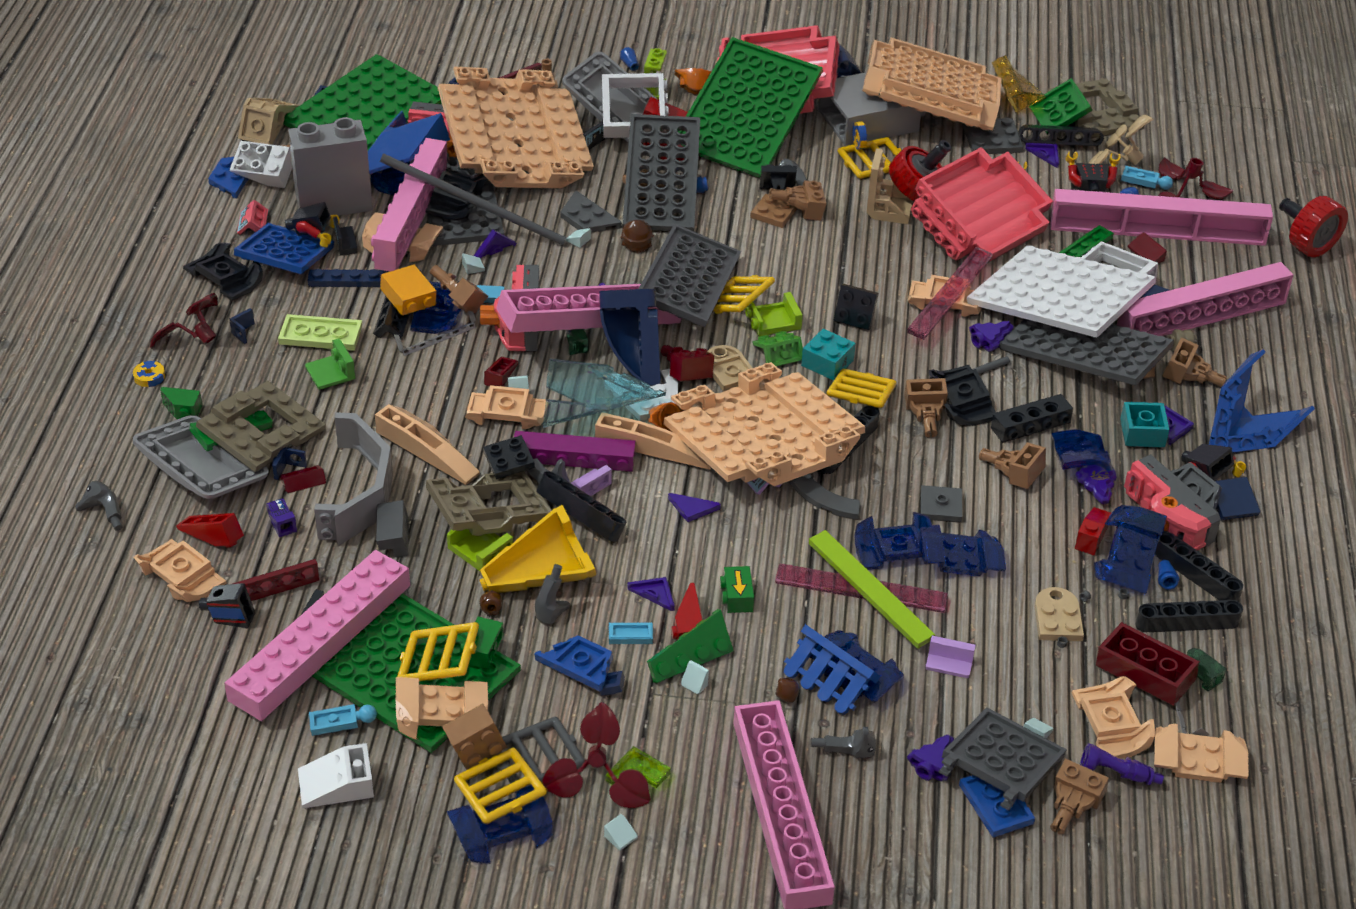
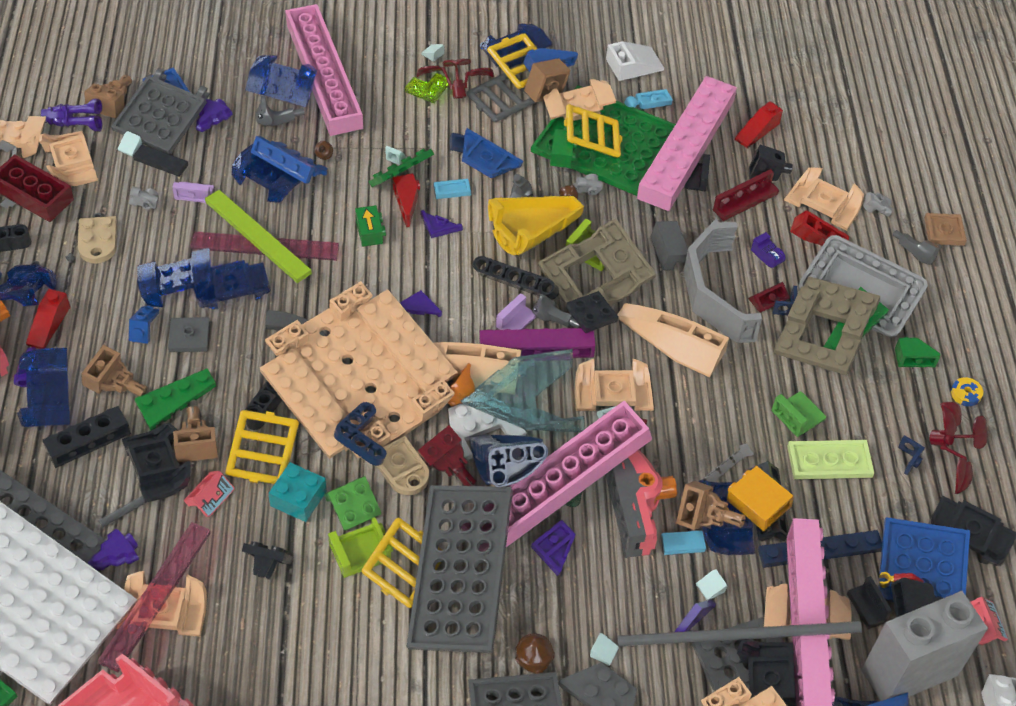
camera: 170 degrees right, 10 degrees up
(58, 521) = (945, 229): none -> medium nougat plate
(120, 553) = (877, 202): none -> light grey plate
(206, 668) = (760, 124): none -> red slope
(462, 610) = (588, 184): none -> light grey plate
(462, 769) = (543, 54): none -> blue slope
(762, 386) = (351, 430): none -> dark blue beam
(812, 764) = (281, 81): none -> clear blue piece
(913, 366) = (210, 493): none -> coral panel
(952, 448) = (165, 401): none -> green wing
(982, 697) = (160, 160): none -> black tile
(991, 514) = (140, 324): none -> blue bracket
(1005, 648) = (146, 199): none -> light grey plate

